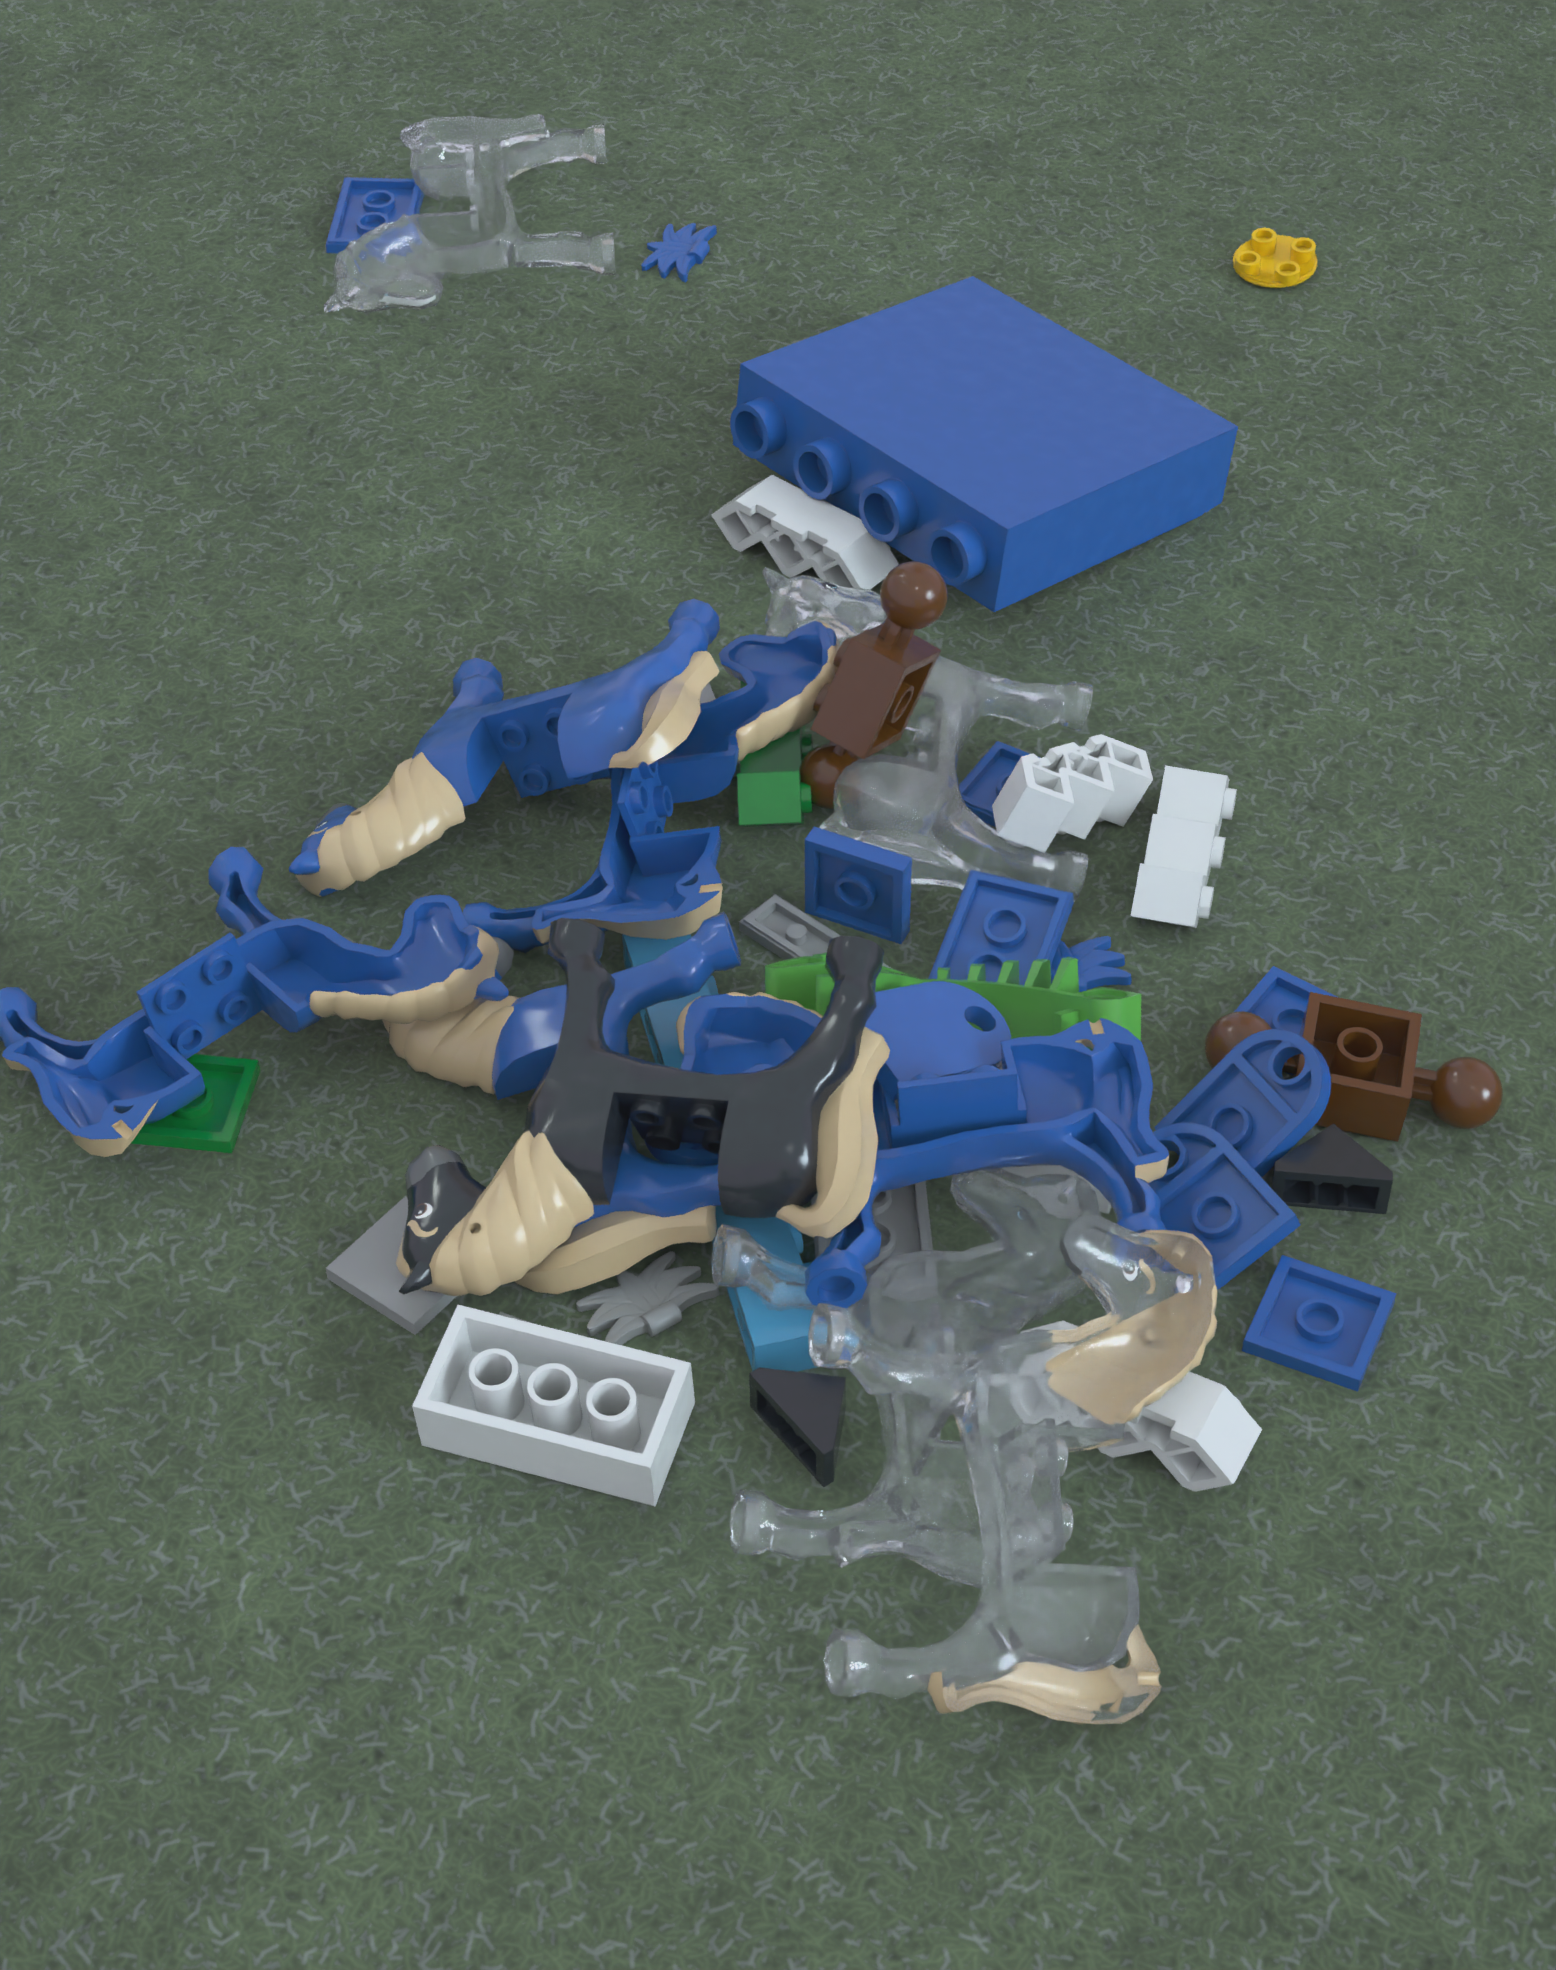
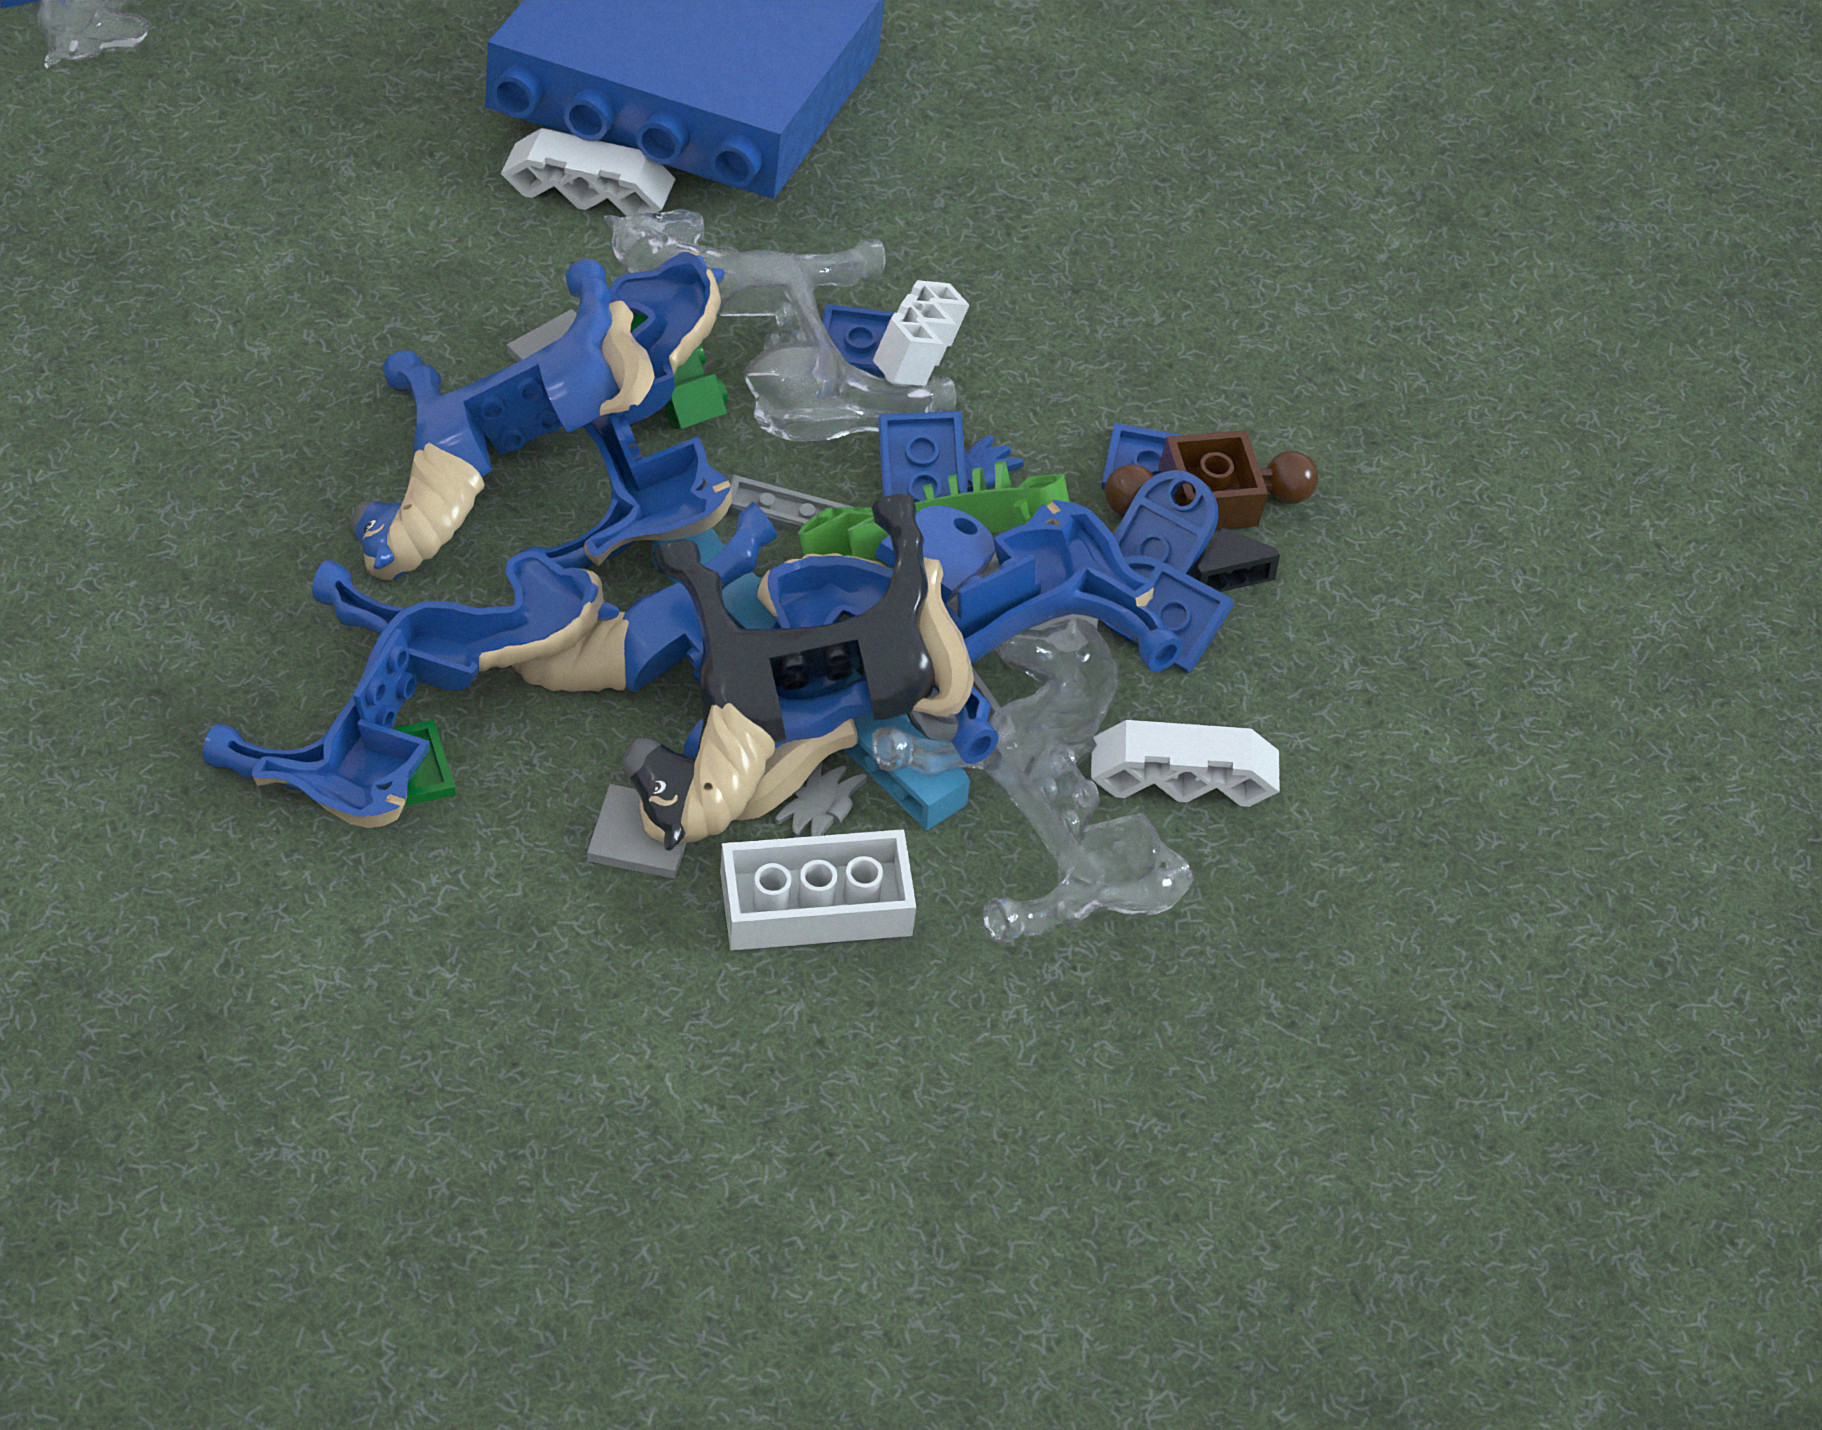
camera: 30 degrees left, 5 degrees up
(804, 1414) = (980, 841): black slope -> none
(857, 885) = (803, 450): blue tile -> none
(876, 679) = (756, 288): reddish brown brick -> none
(1020, 1404) = (1151, 792): clear animal -> none
(1183, 847) = (1010, 351): white brick -> none
(1319, 1322) = (1272, 668): blue tile -> none

